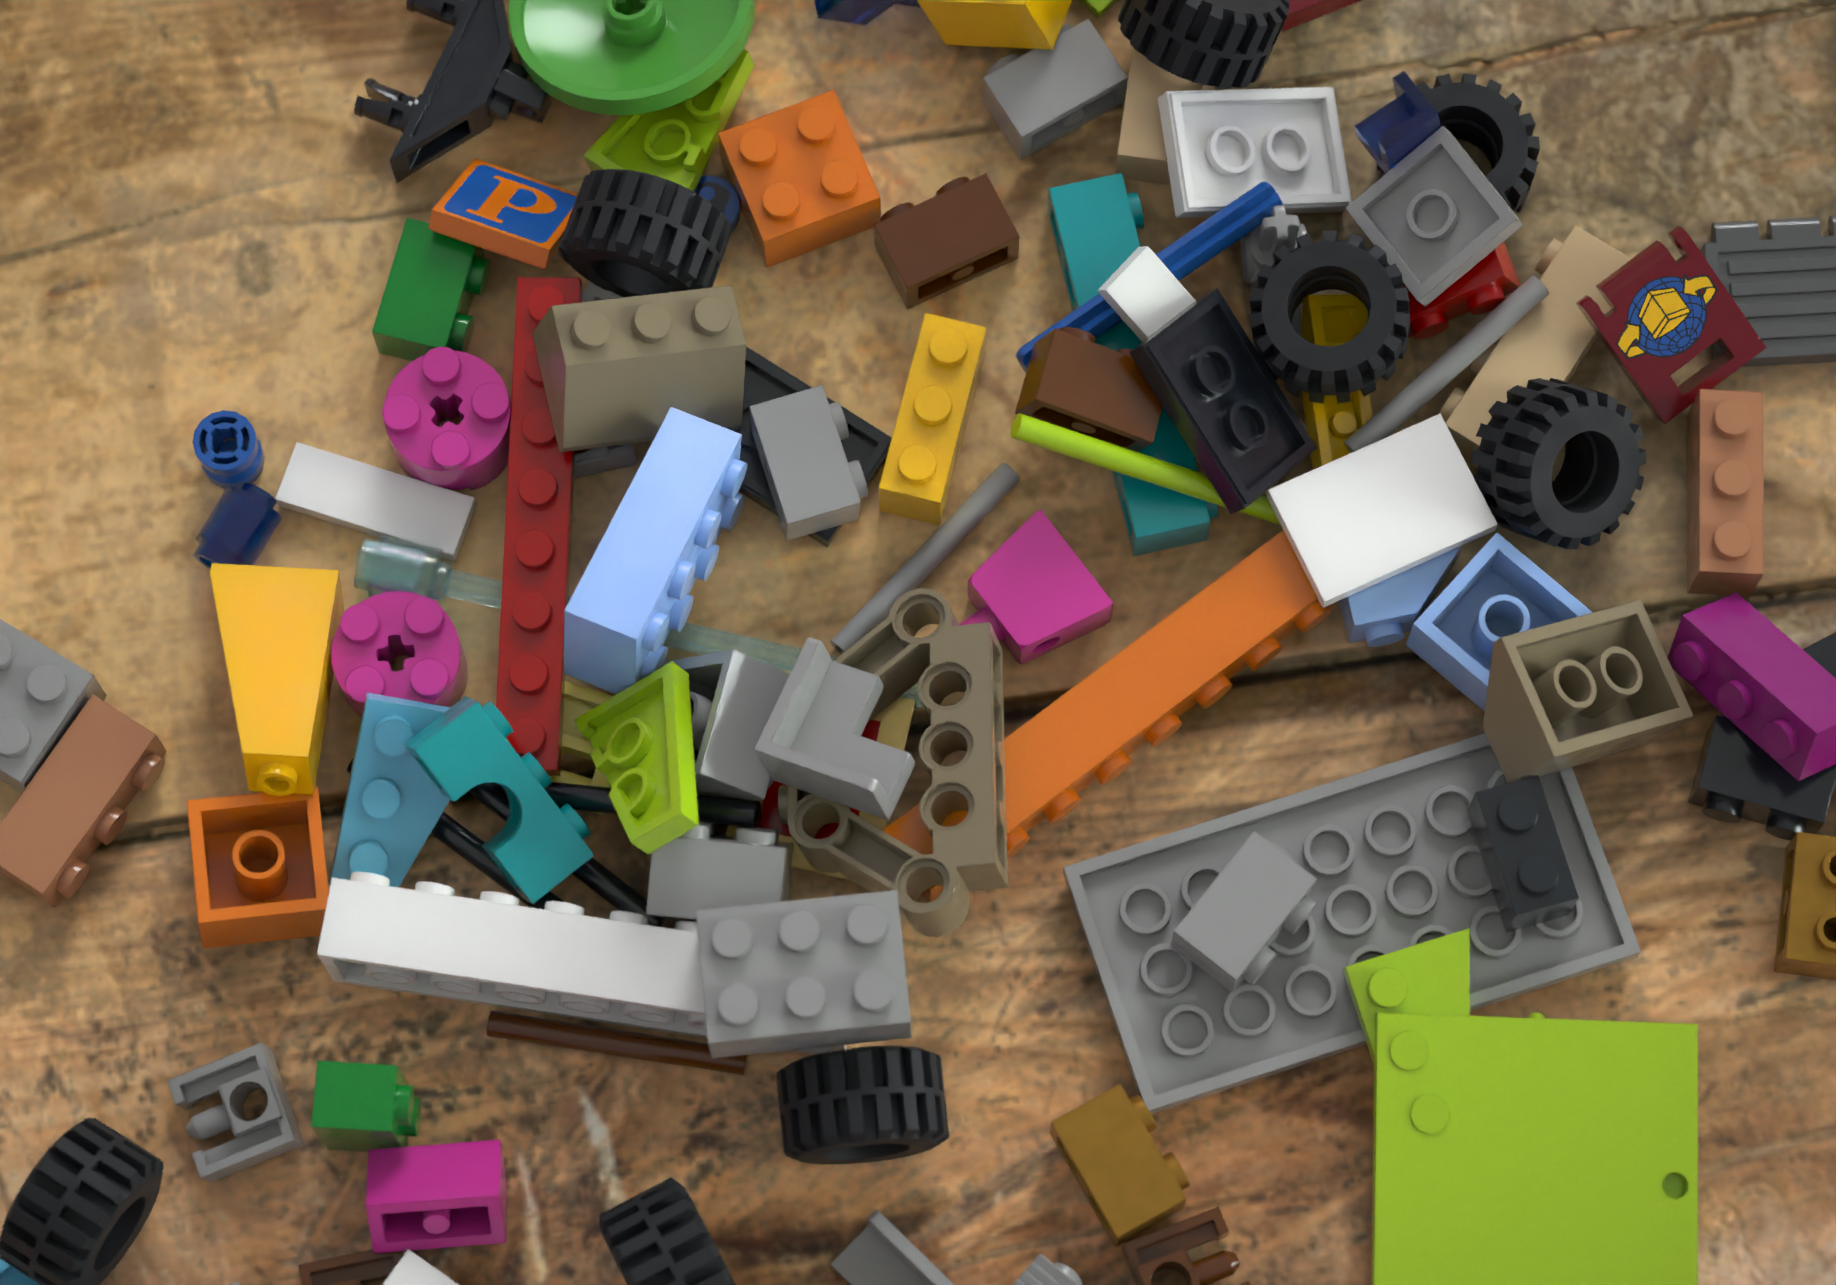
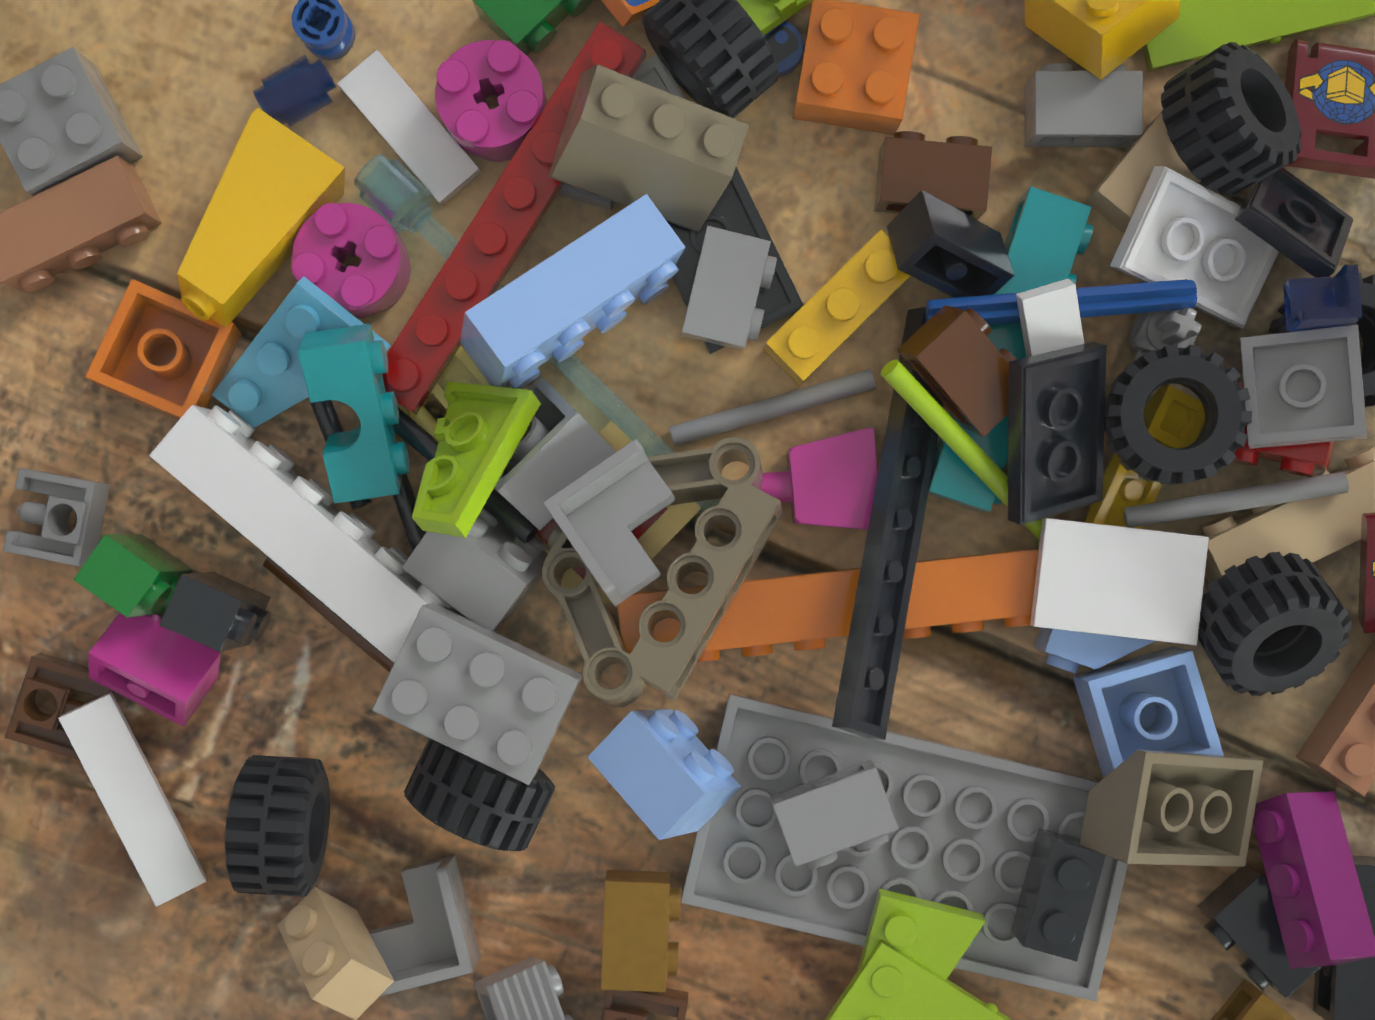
camera: 35 degrees right, 15 degrees up
(474, 1092) = (216, 611): none -> black brick
(1004, 291) = (948, 248): none -> black brick
(1054, 970) = (665, 771): none -> light blue brick
(1137, 624) = (887, 564): none -> black plate
(1331, 71) = (1296, 222): none -> black tile

